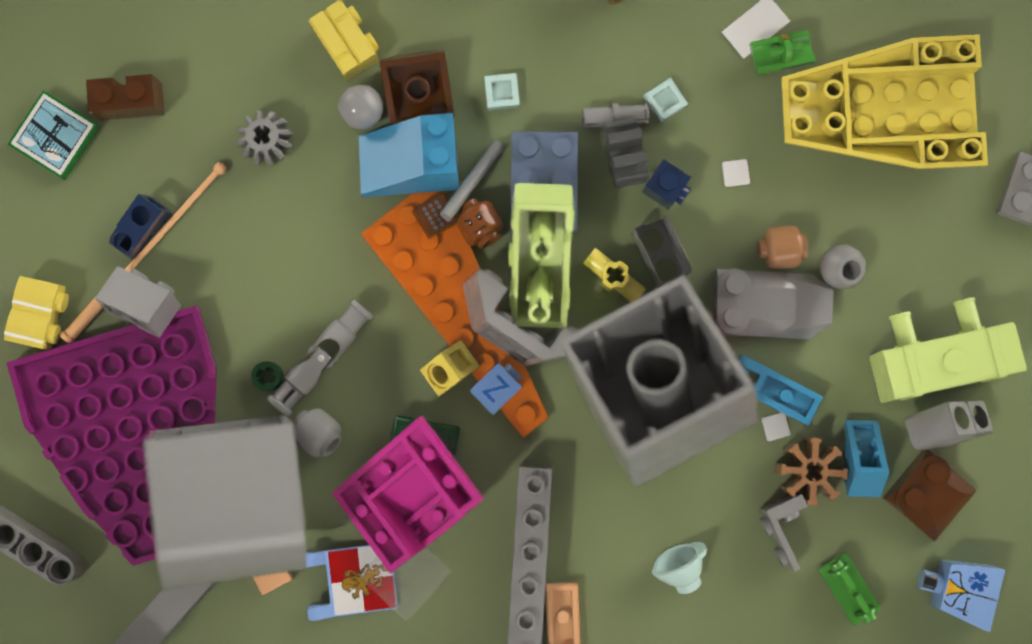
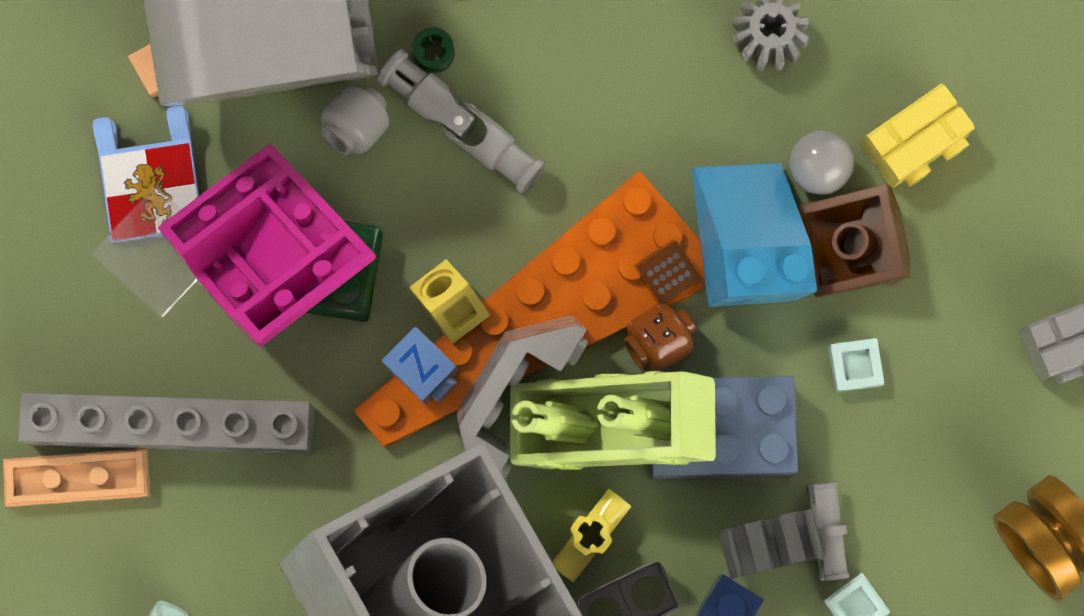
camera: 90 degrees right, 5 degrees down
(471, 181) = (721, 324): light grey bar -> none

